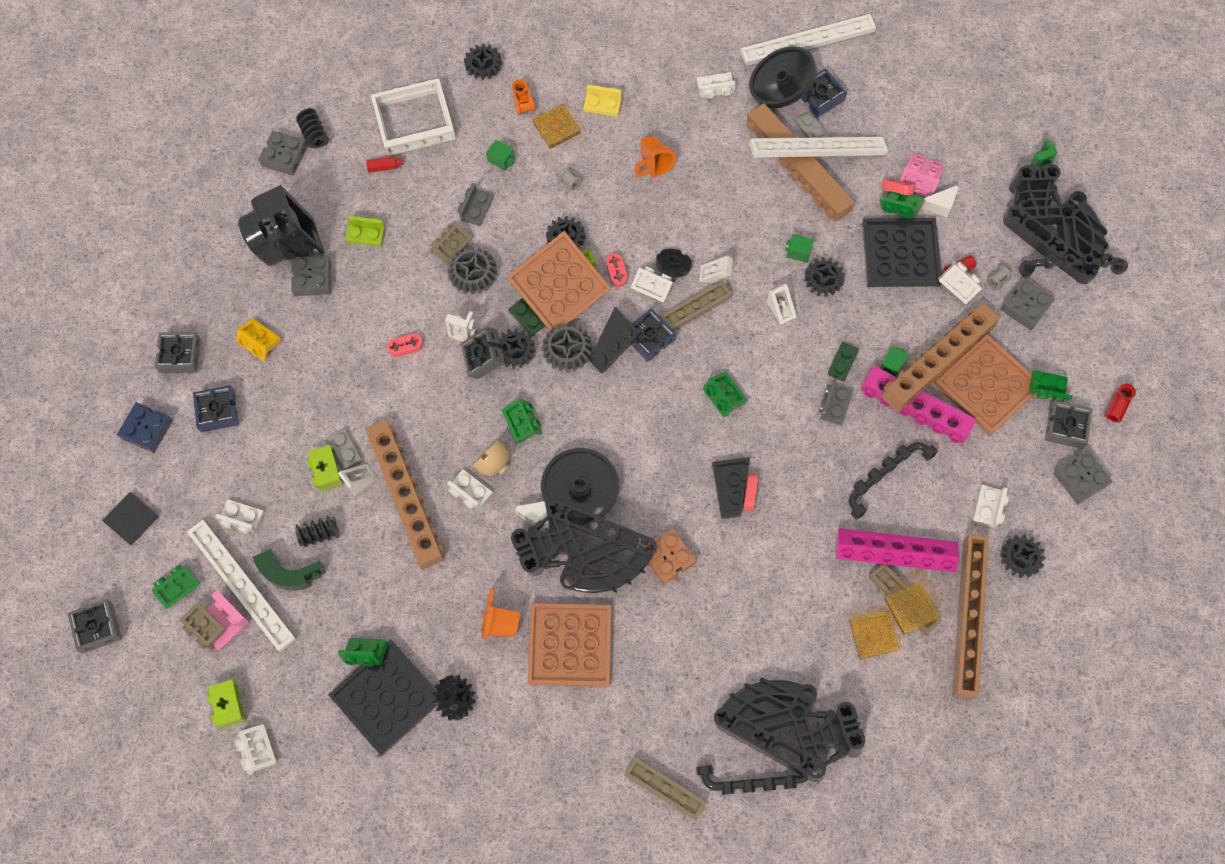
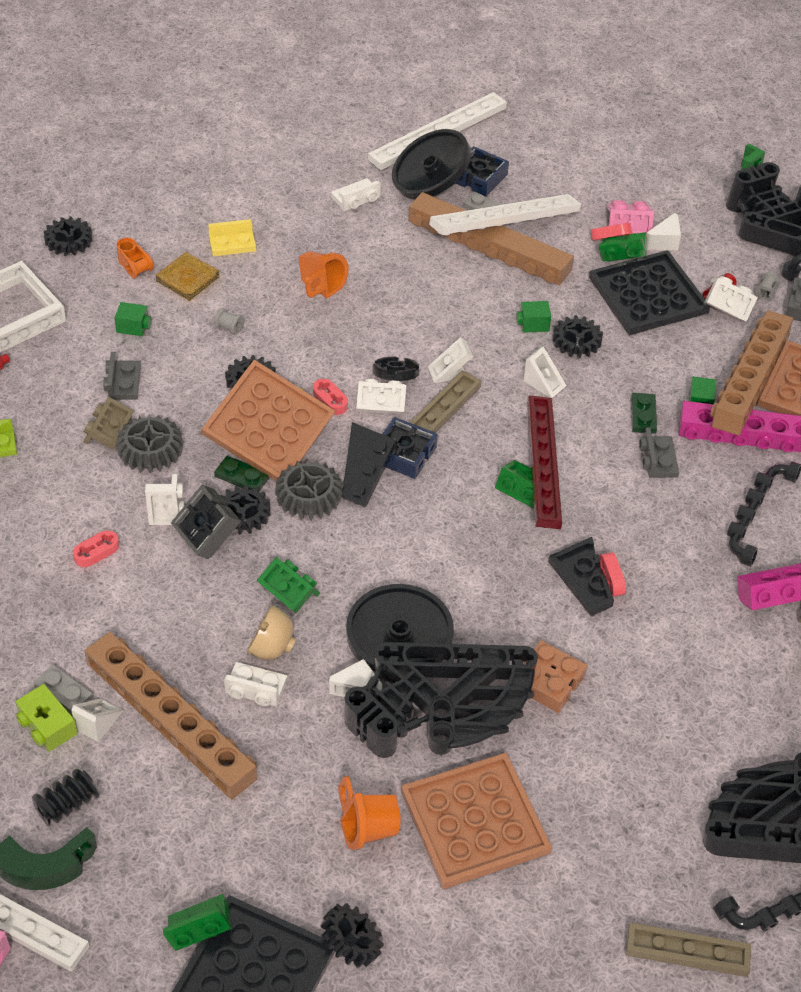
camera: 25 degrees left, 20 degrees down
(743, 383) = (544, 463): none -> dark red tile

